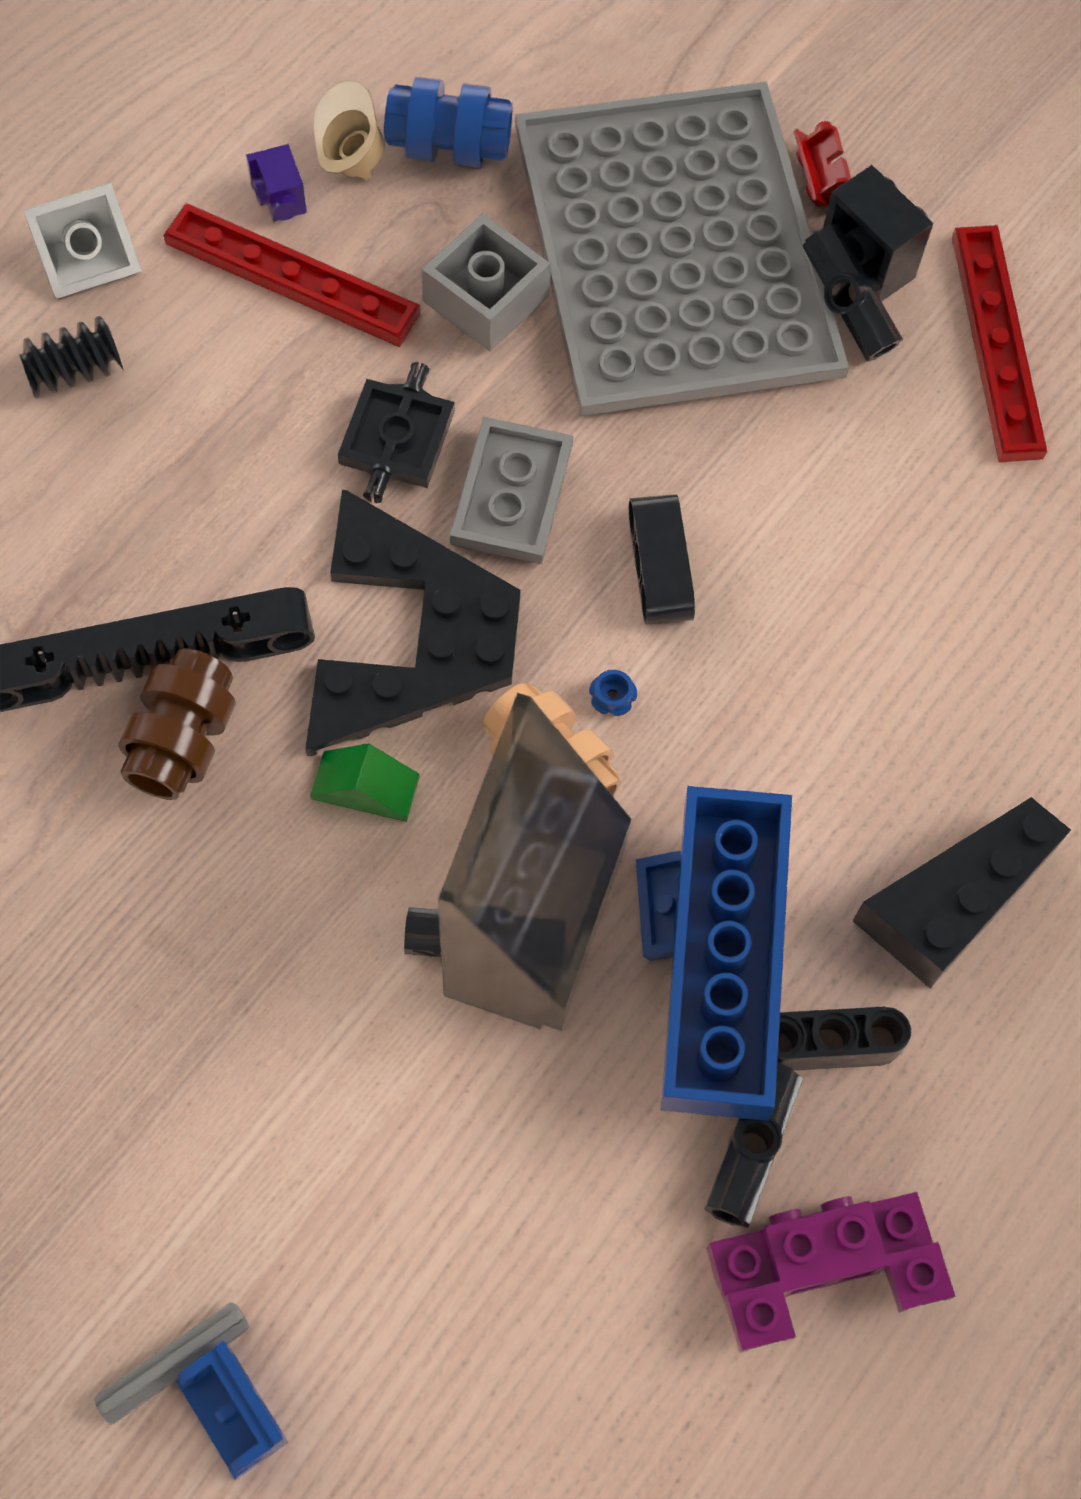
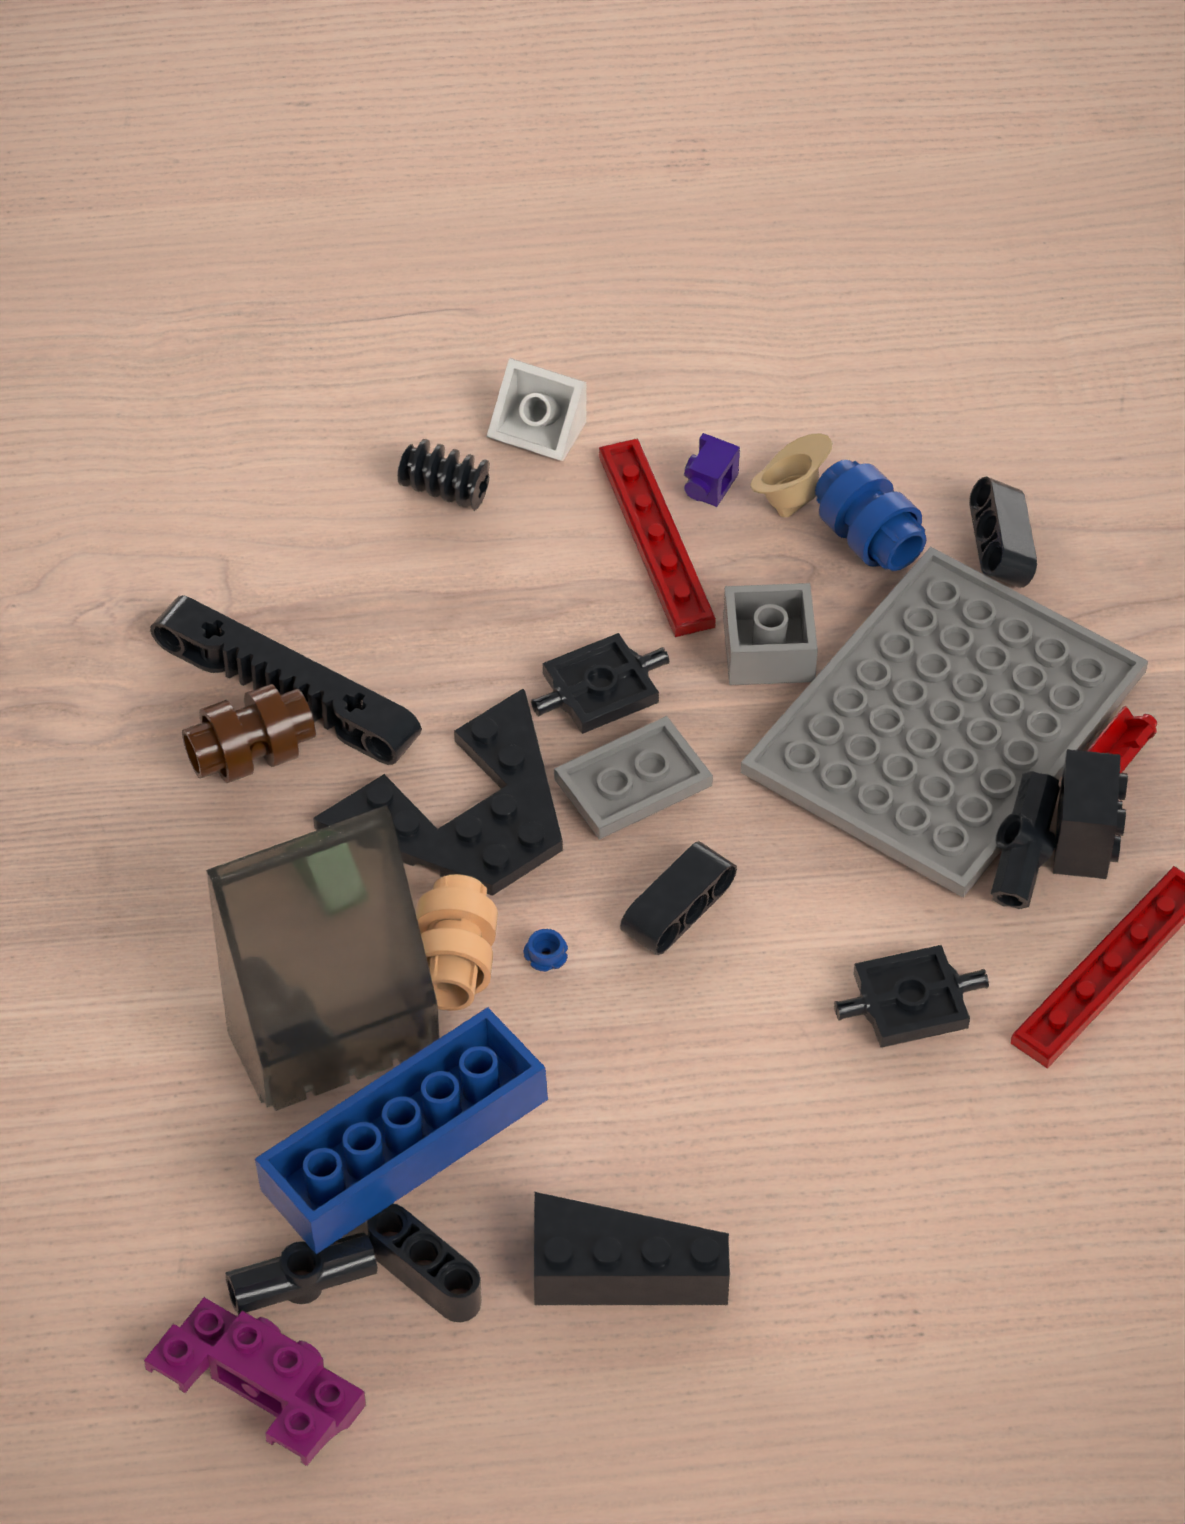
camera: 50 degrees right, 15 degrees down
(571, 59) = (1003, 532): none -> black beam
(906, 486) = (911, 995): none -> black plate

